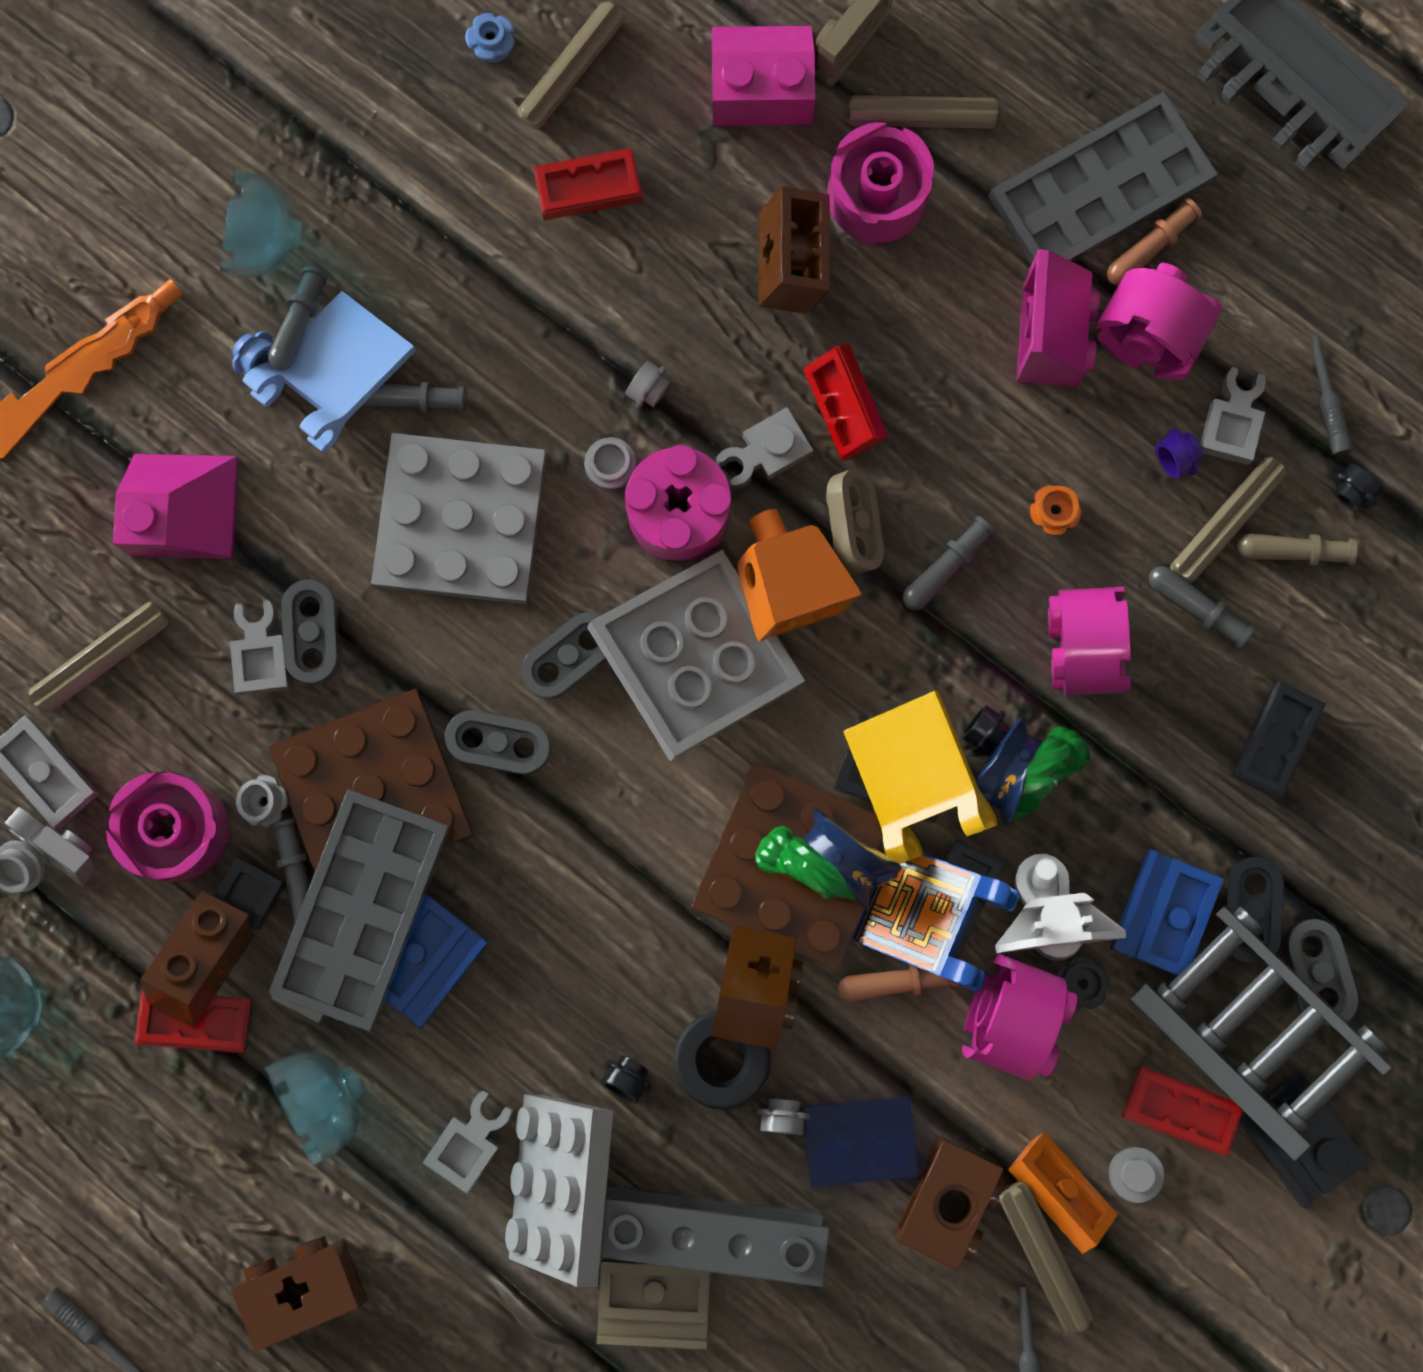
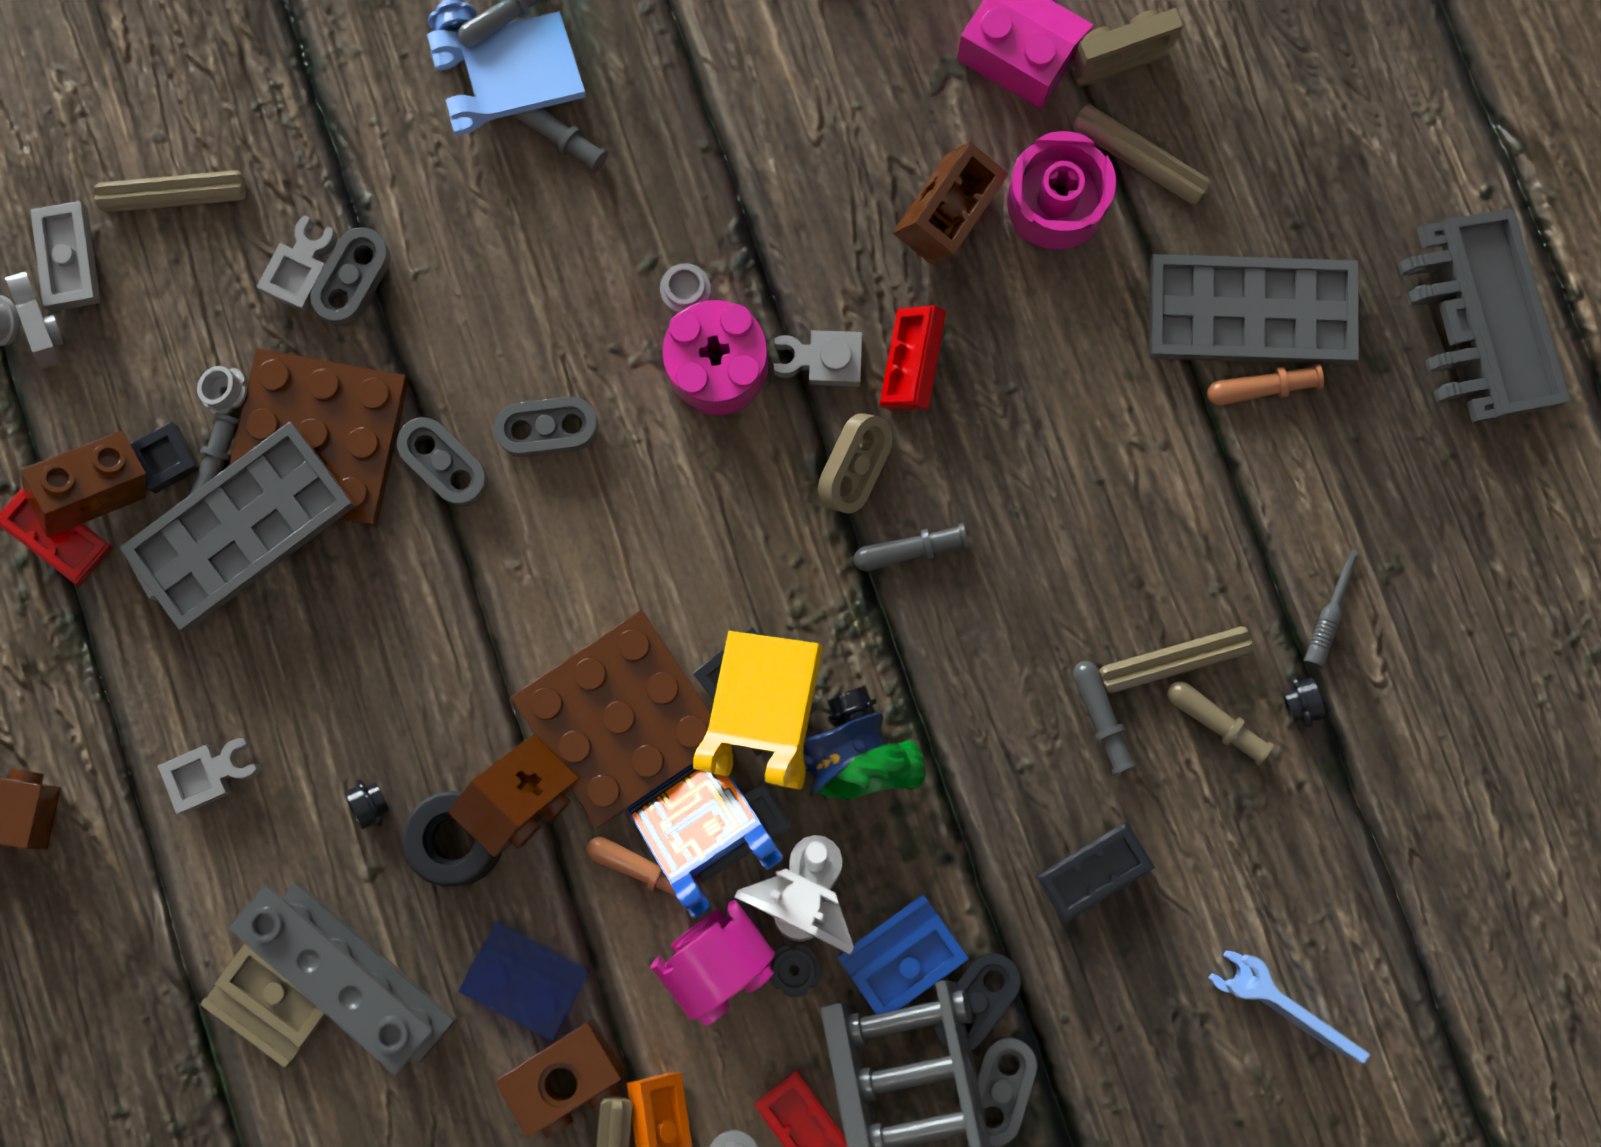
camera: 35 degrees right, 0 degrees up
(138, 827) = (133, 339): dark pink brick -> none
(177, 506) = (310, 106): dark pink slope -> none
(317, 1101) = (103, 661): clear light blue cylinder -> none
(433, 961) = (273, 607): blue plate -> none
(459, 518) = (532, 258): light grey plate -> none
(560, 1188) = (244, 856): light grey plate -> none
(588, 184) = (817, 44): red plate -> none
(648, 385) = (758, 242): light grey plate -> none
(694, 655) = (648, 490): light grey plate -> none
(782, 1117) = (472, 919): light grey plate -> none
(792, 577) = (769, 476): orange torso -> none
(827, 859) = (639, 729): piece -> none
(1056, 322) = (1134, 400): dark pink slope -> none
(1063, 498) = (1036, 545): orange plate -> none
(1092, 641) = (983, 686): dark pink brick -> none
(1158, 321) = (1220, 452): dark pink brick -> none
(1179, 453) = (1169, 577): dark purple plate -> none
(1232, 424) = (1233, 581): light grey plate -> none

